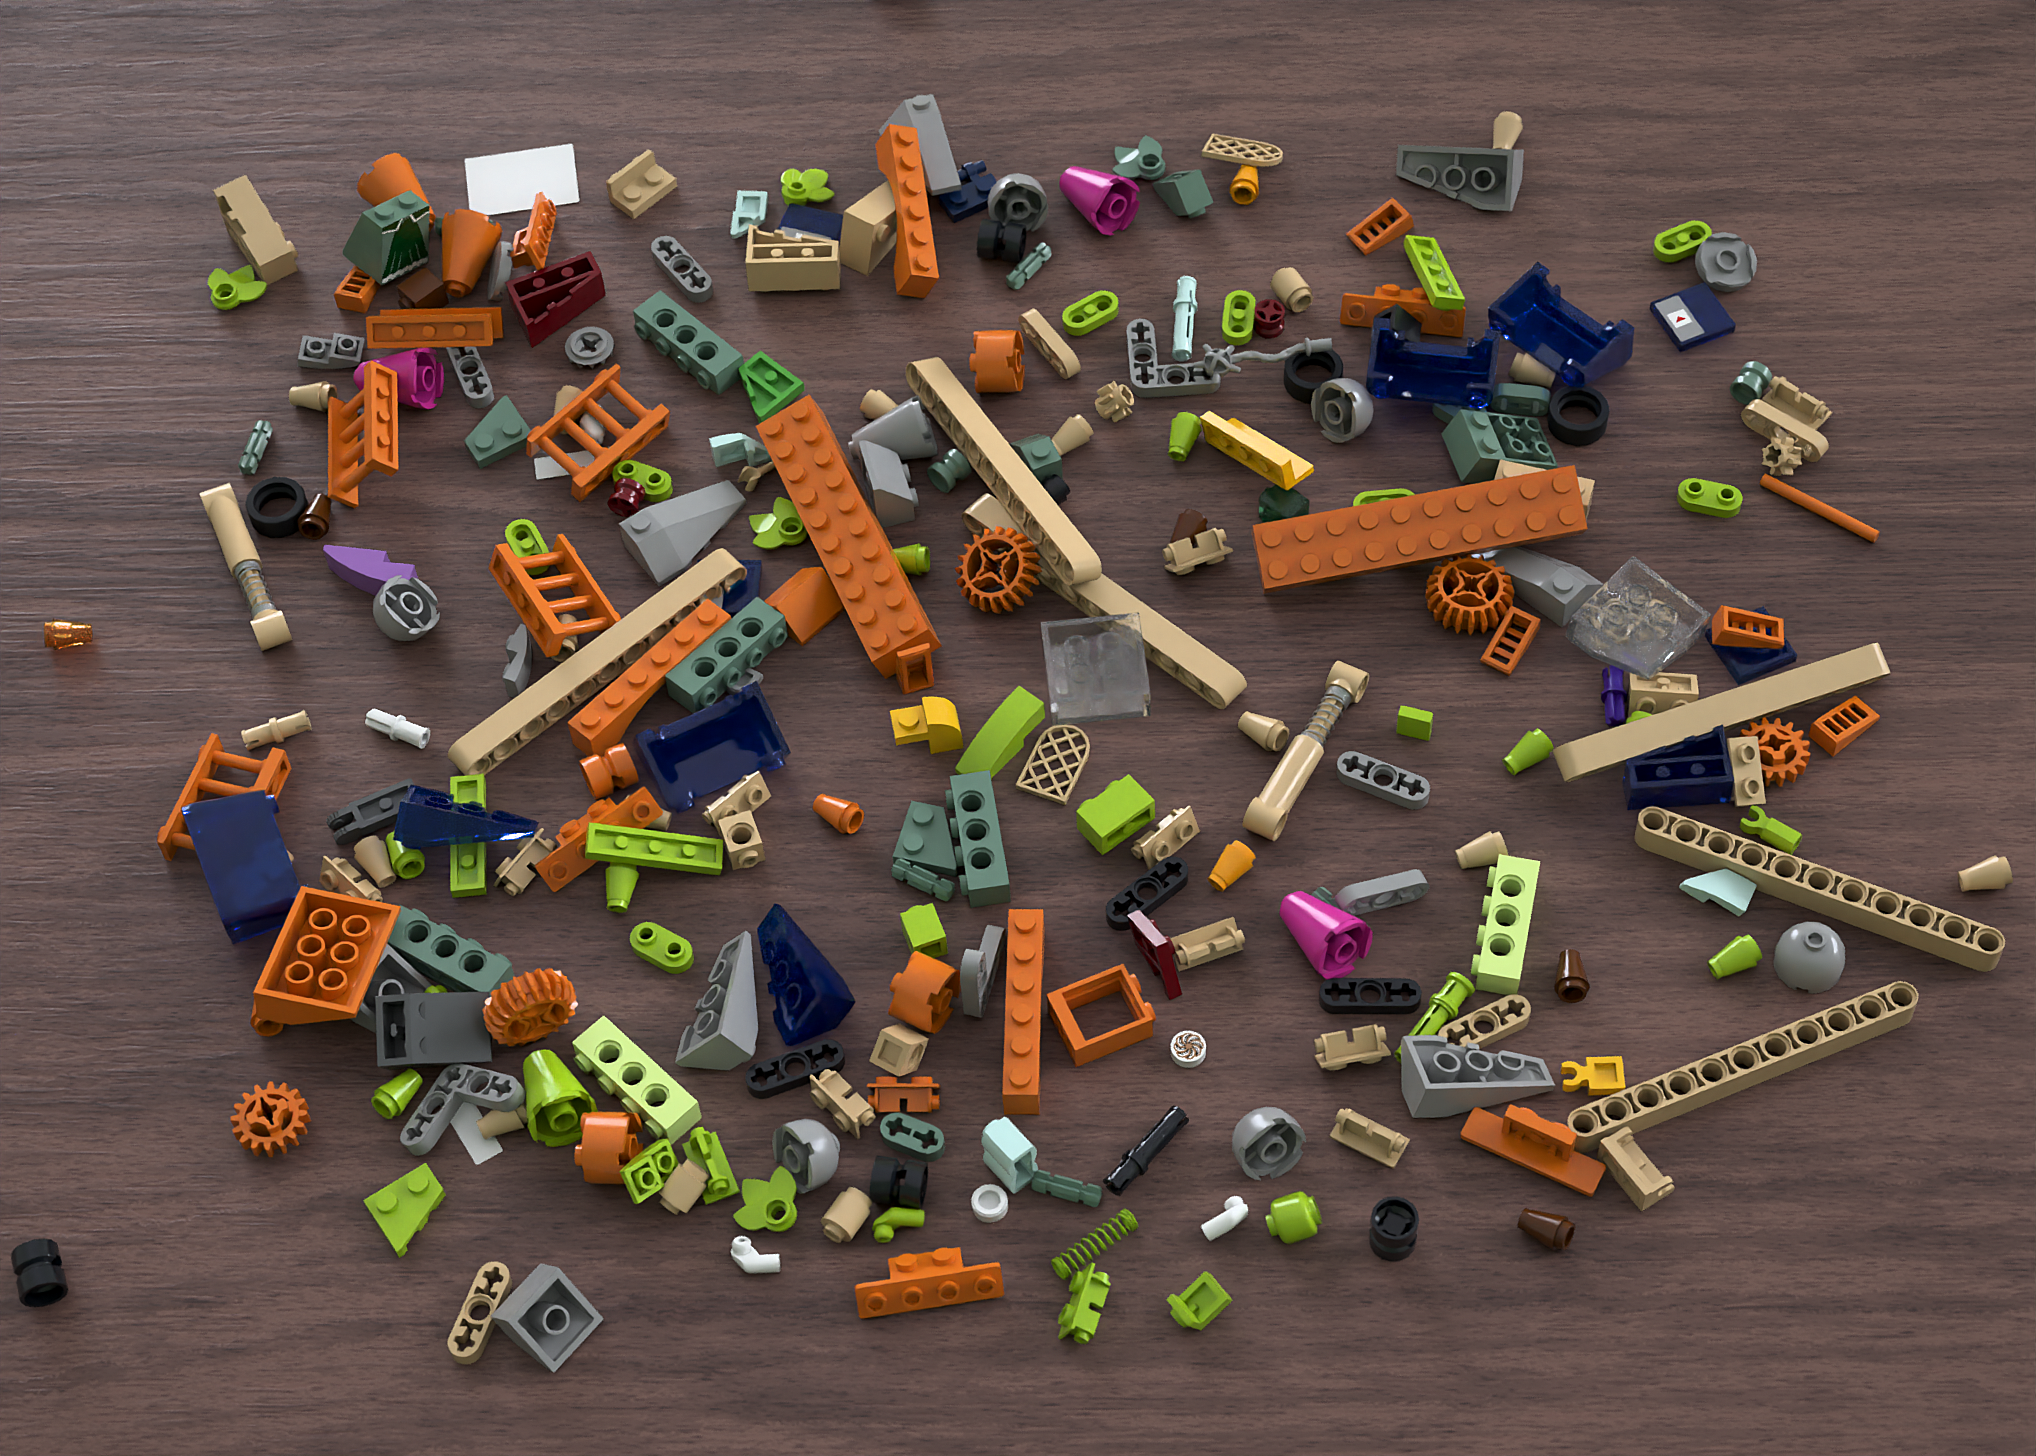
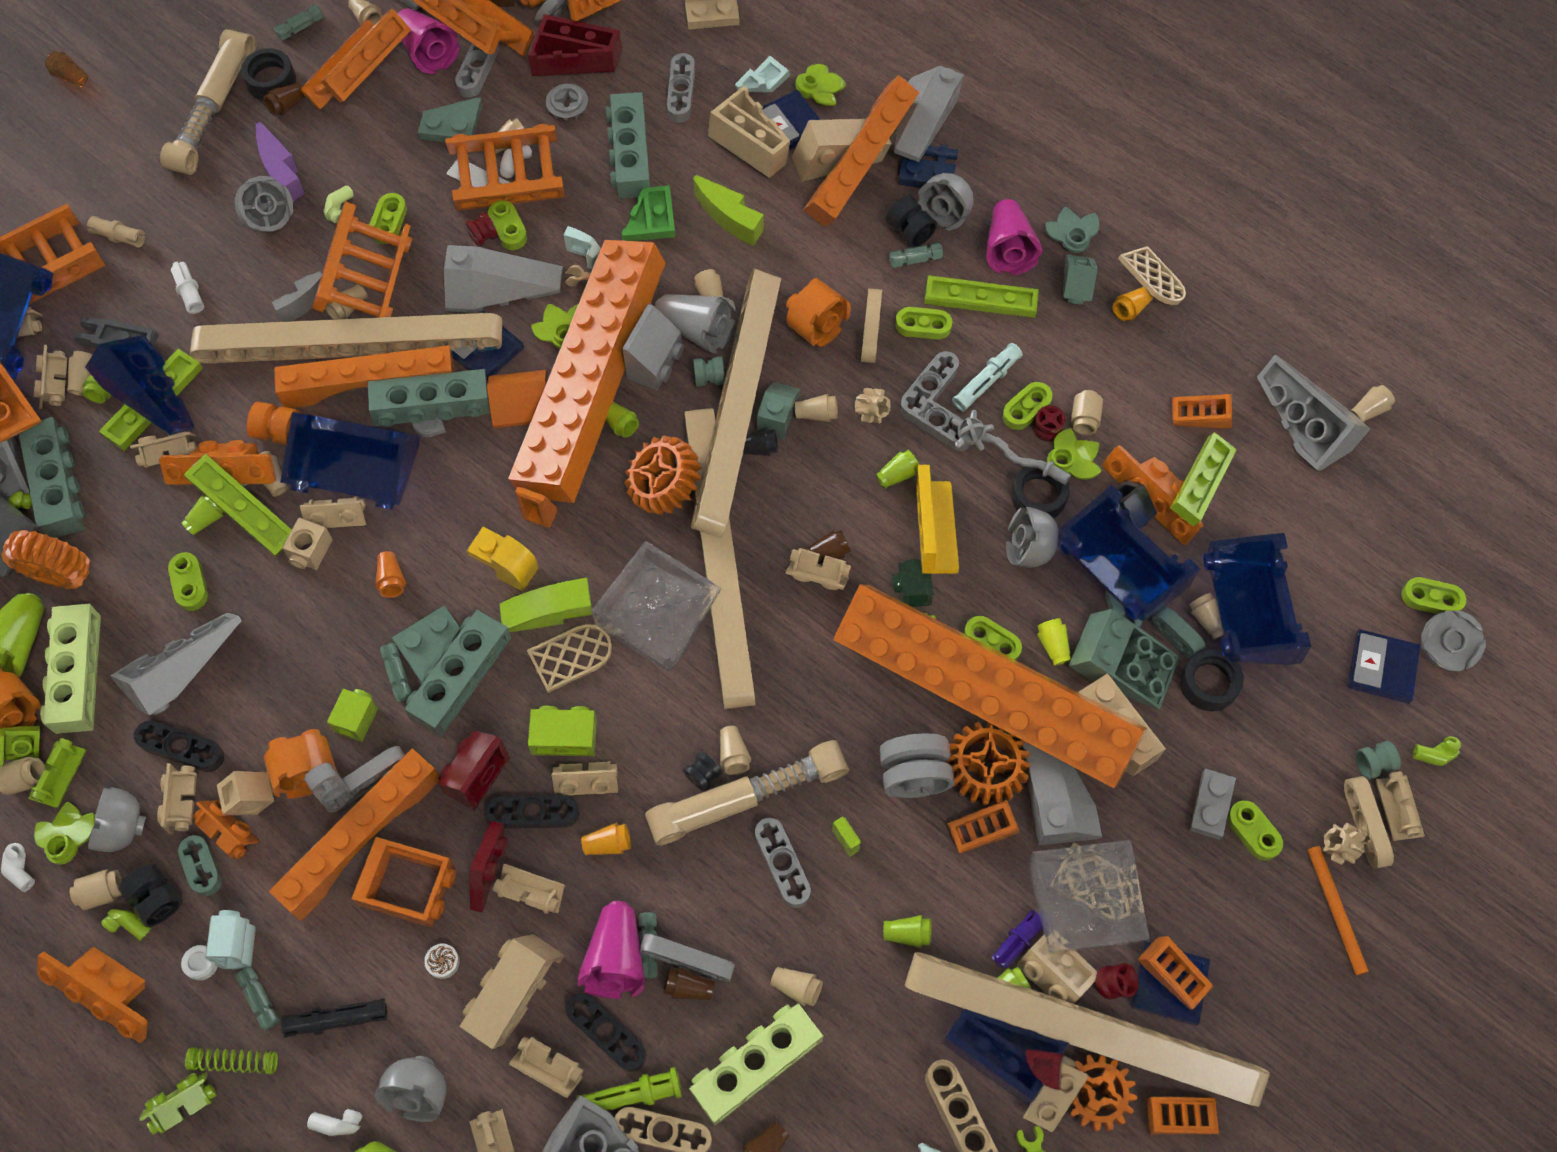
camera: 35 degrees right, 10 degrees up
(461, 566) = (334, 202): none -> yellowish green arm
(805, 985) = (242, 695): clear blue wedge -> none
(831, 336) = (728, 210): none -> lime slope
(1069, 891) = (474, 769): none -> dark red slope
(1115, 262) = (981, 296): none -> lime tile
(1255, 761) = (702, 771): none -> black wheel
(1268, 1017) = (509, 989): none -> tan wedge
(1312, 326) = (1076, 455): none -> lime plate
(1397, 915) = (687, 985): none -> reddish brown cone
(1421, 628) = (916, 765): none -> light grey wheel
(1432, 471) = (1055, 640): none -> neon yellow cone
(1661, 502) = (1212, 804): none -> light grey plate
(1713, 668) = (1117, 981): none -> dark red wheel
(1723, 748) = (1046, 1067): none -> dark red tile
(1790, 349) = (1439, 755): none -> lime arm

